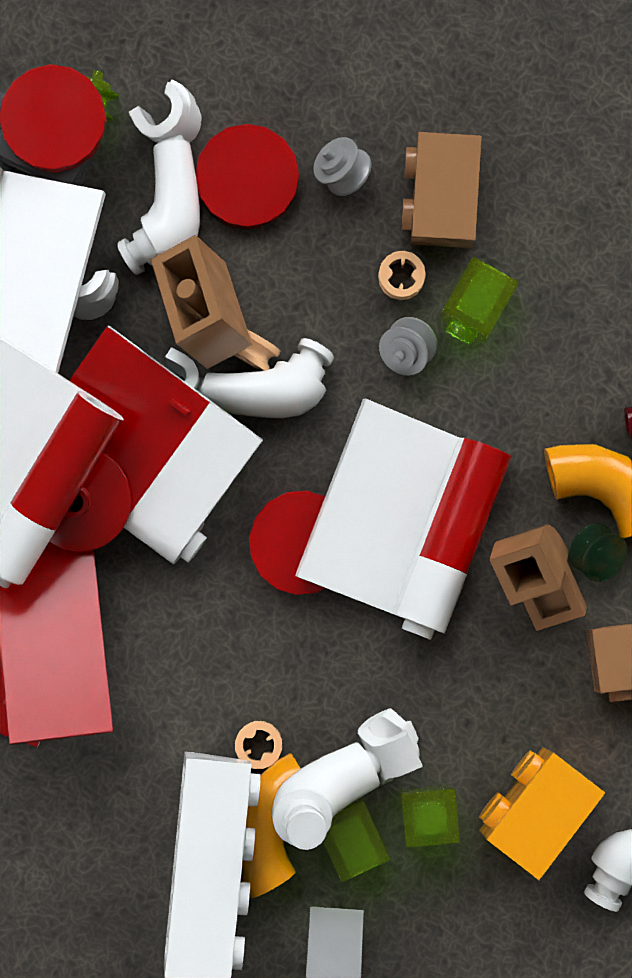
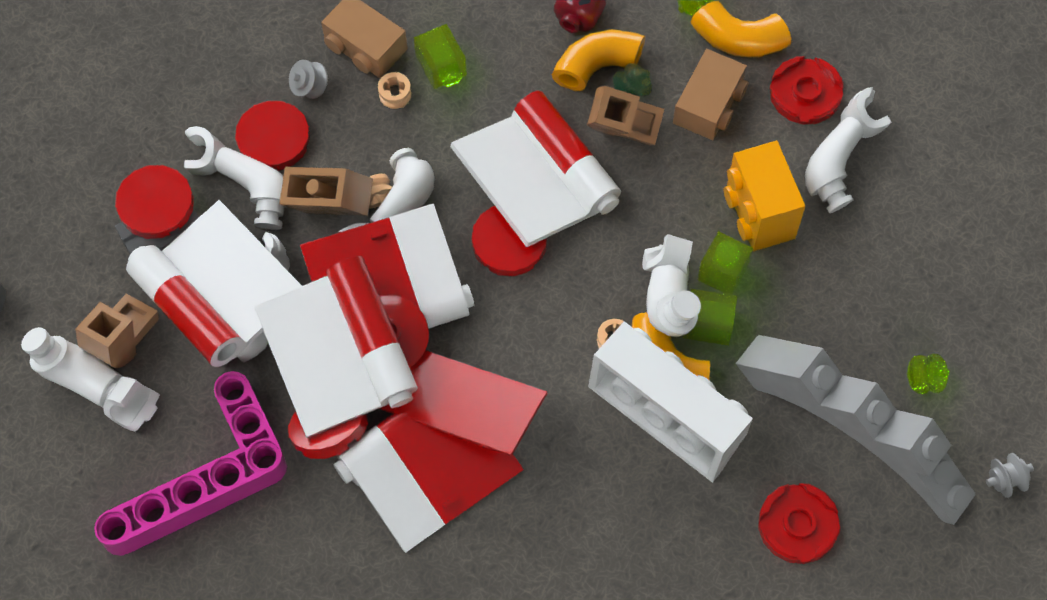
camera: 55 degrees left, 20 degrees down
(408, 346) = (438, 108): light grey wheel -> none

